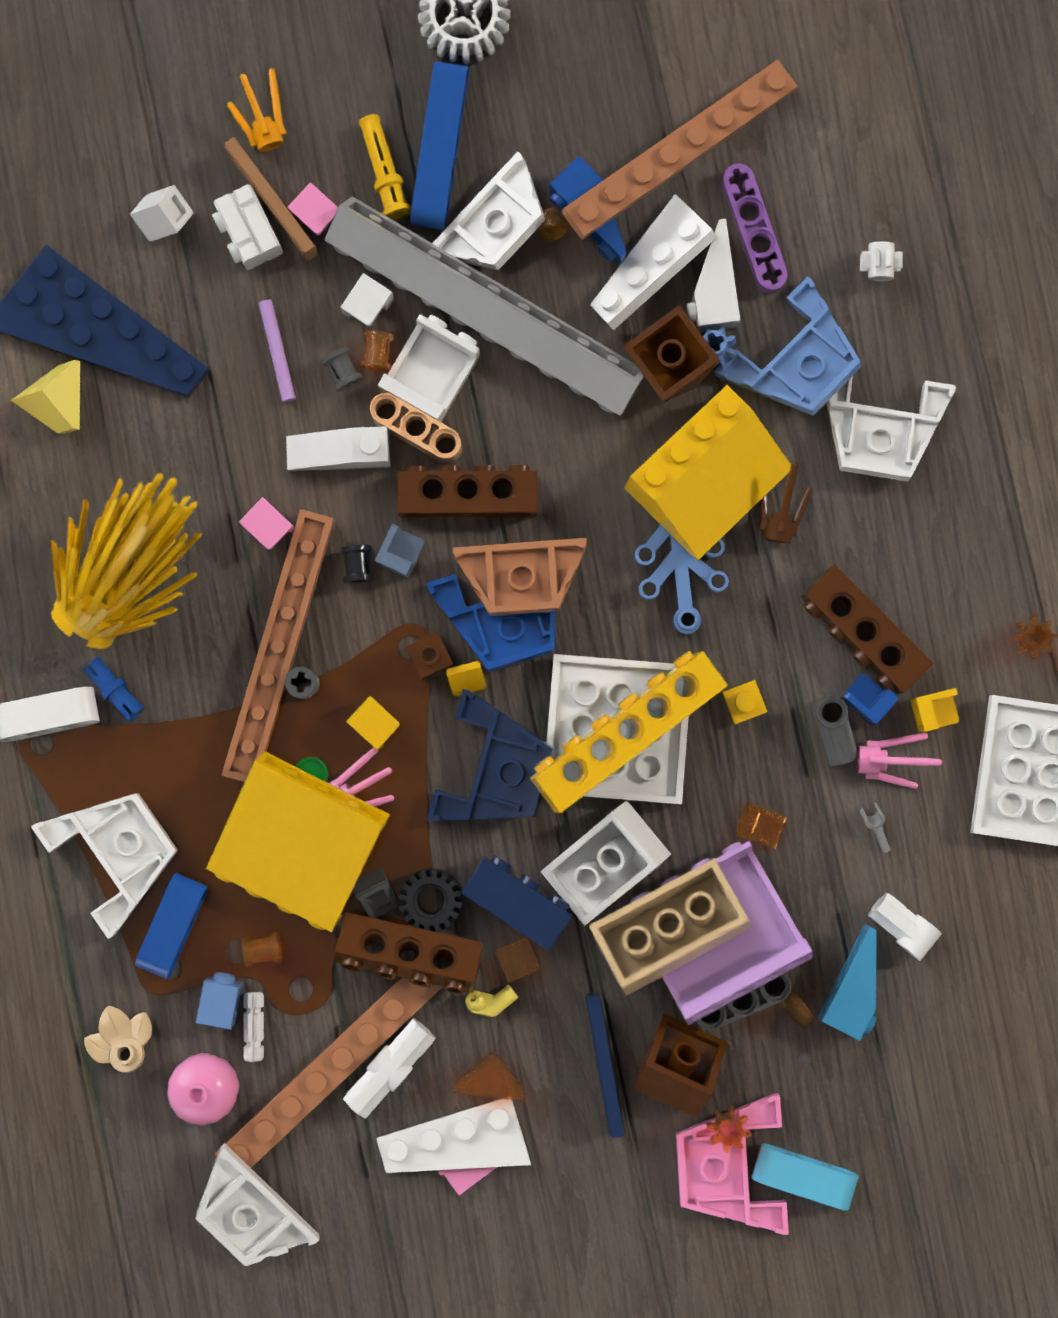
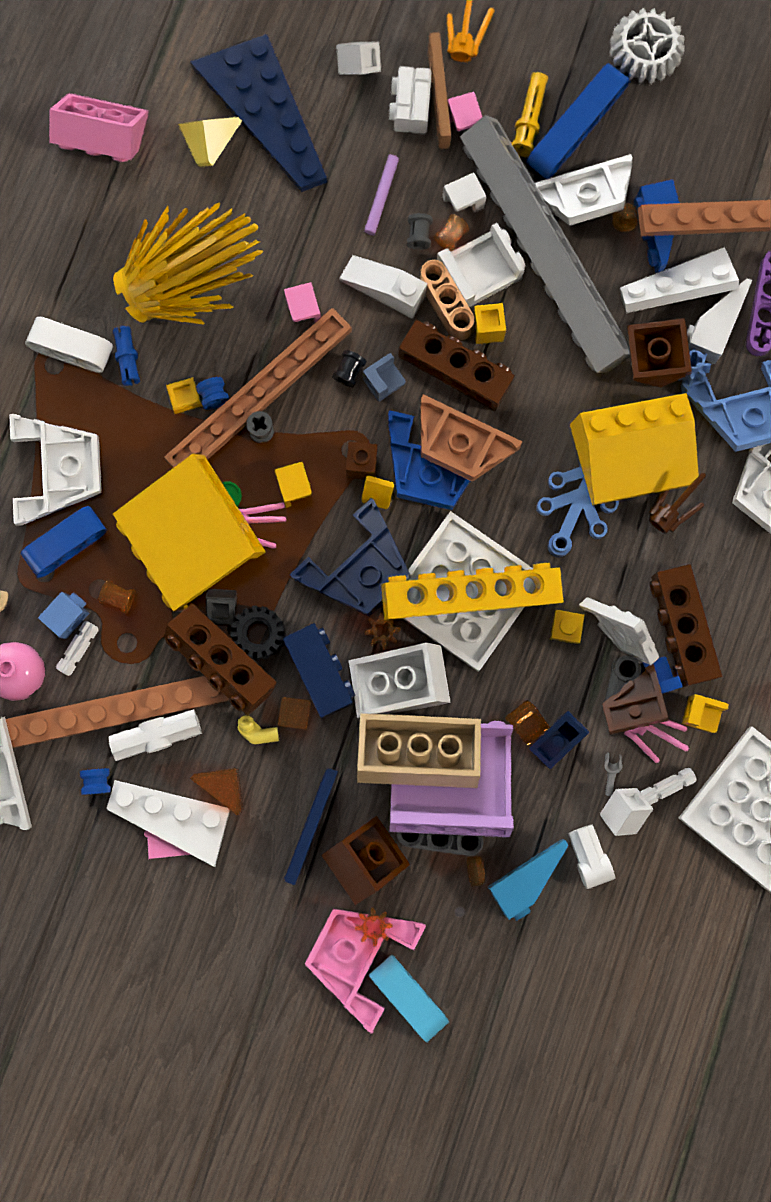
camera: 25 degrees right, 5 degrees down
(200, 695) = (183, 395): none -> yellow tile
(230, 675) = (212, 393): none -> blue wheel
(357, 1152) = (95, 781): none -> blue wheel
(476, 427) = (489, 323): none -> yellow panel
(564, 829) = (381, 623): none -> clear orange gear
(804, 676) = (624, 630): none -> white wing
(804, 827) = (559, 739): none -> dark blue slope
(862, 746) = (637, 704): none -> reddish brown wing
(914, 858) = (626, 811): none -> white panel
(941, 806) = (669, 785): none -> white axle

